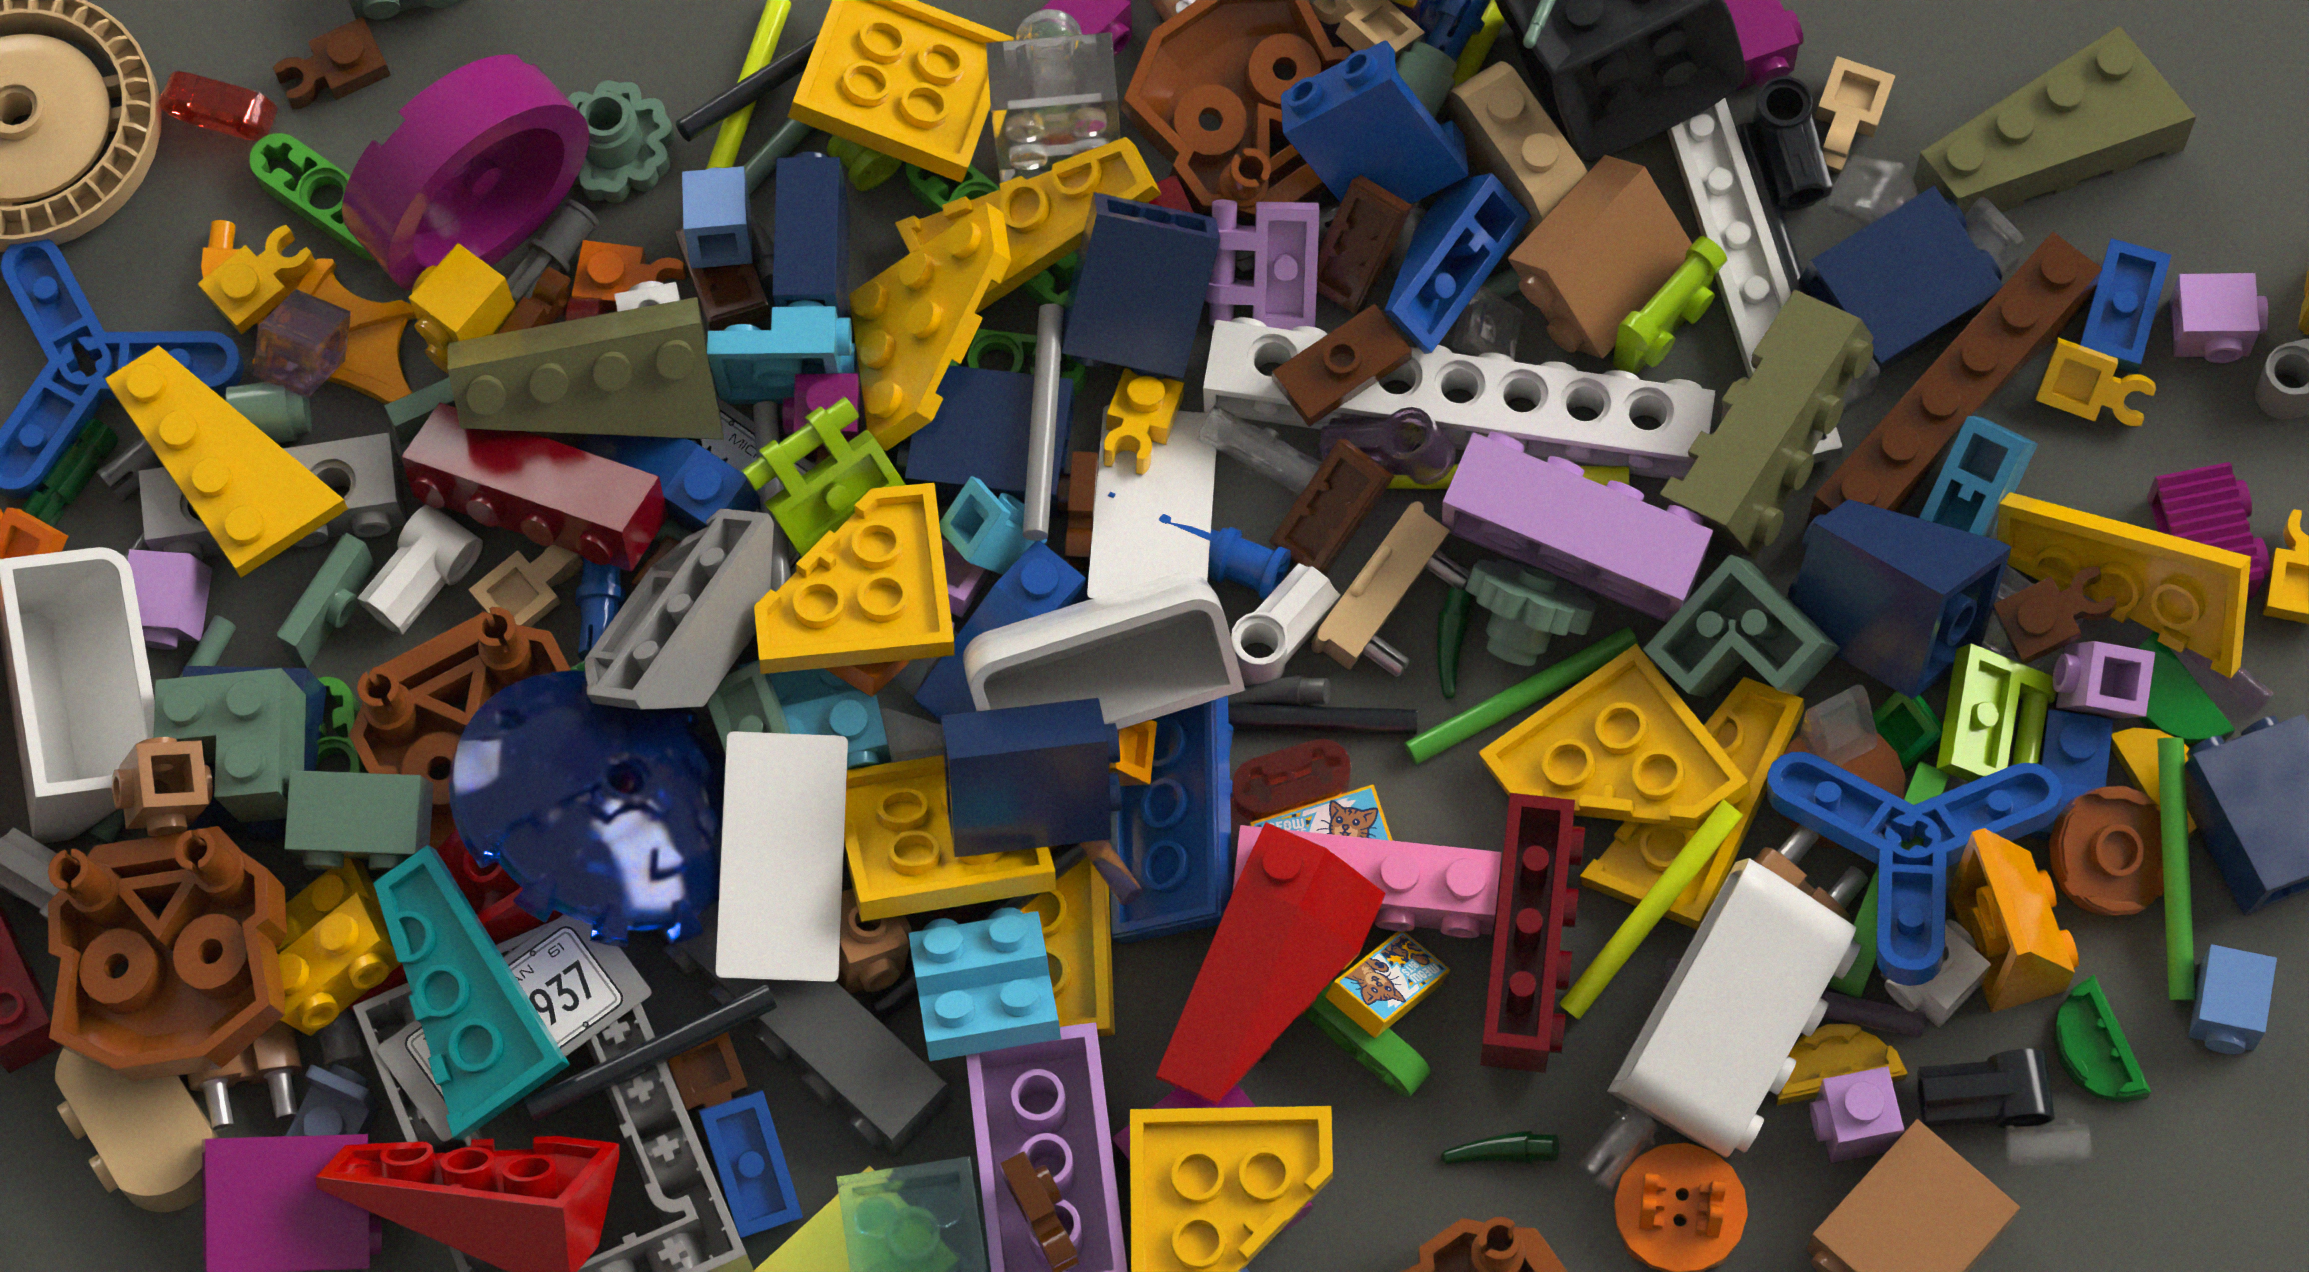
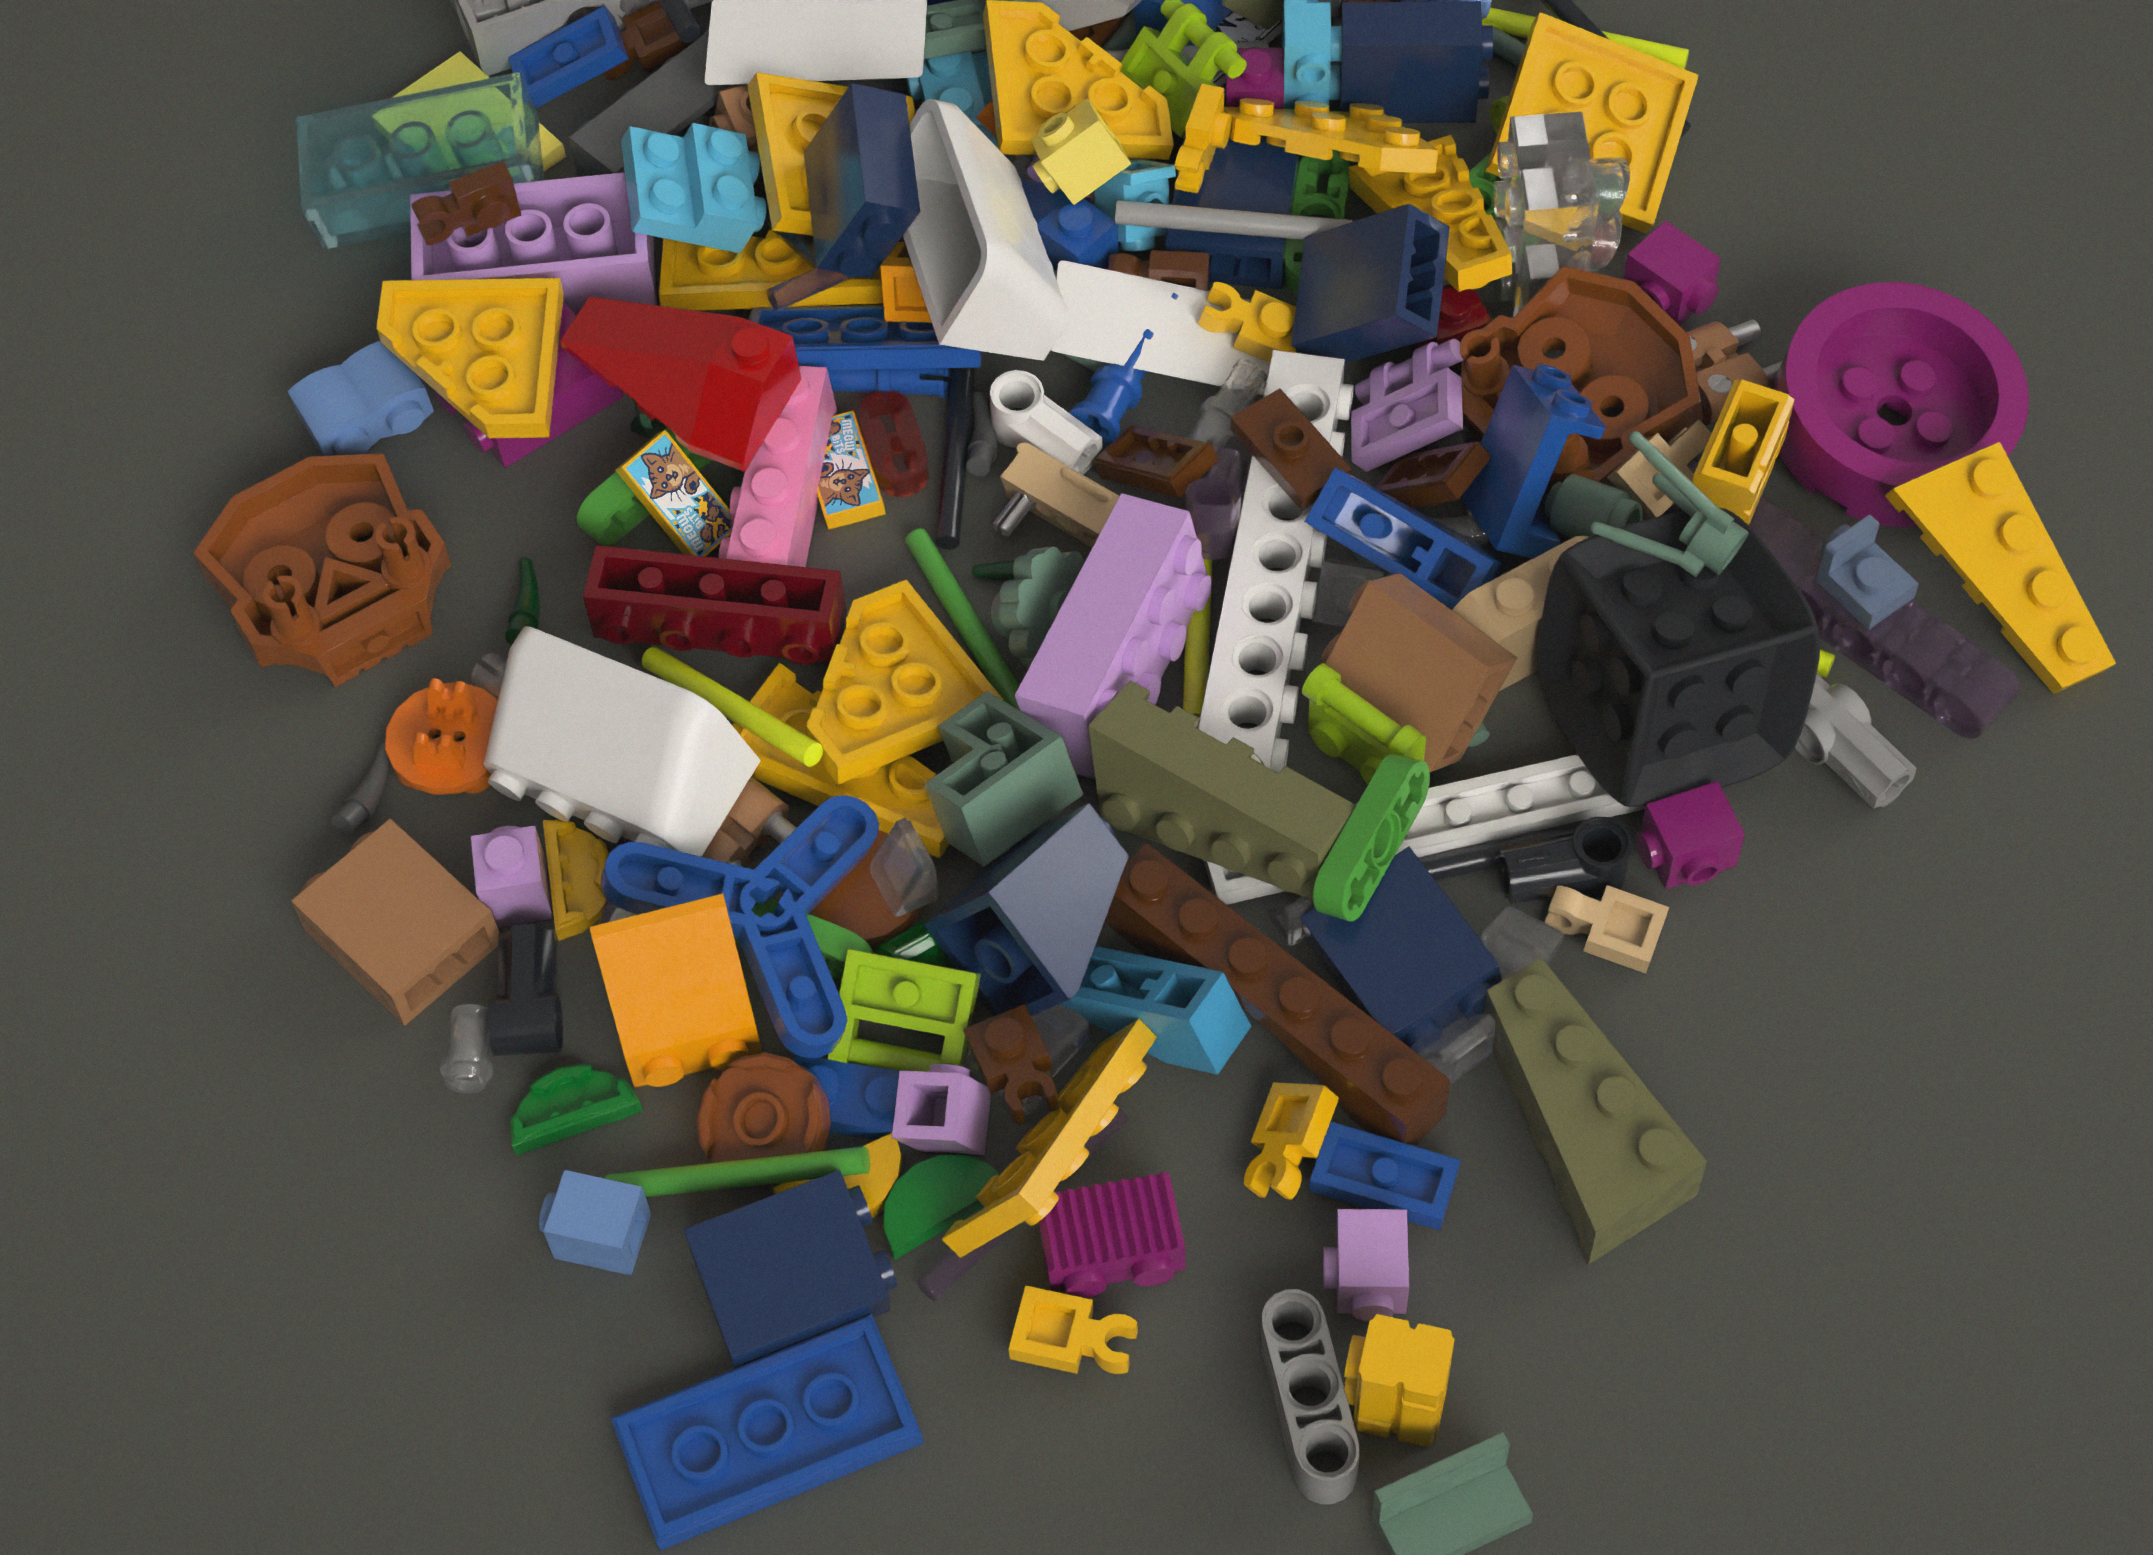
camera: 90 degrees right, 10 degrees down
(932, 446) = (1205, 131): none -> yellow plate
(973, 563) = (1077, 152): none -> light yellow brick
(1791, 271) = (1371, 837): none -> bright green beam

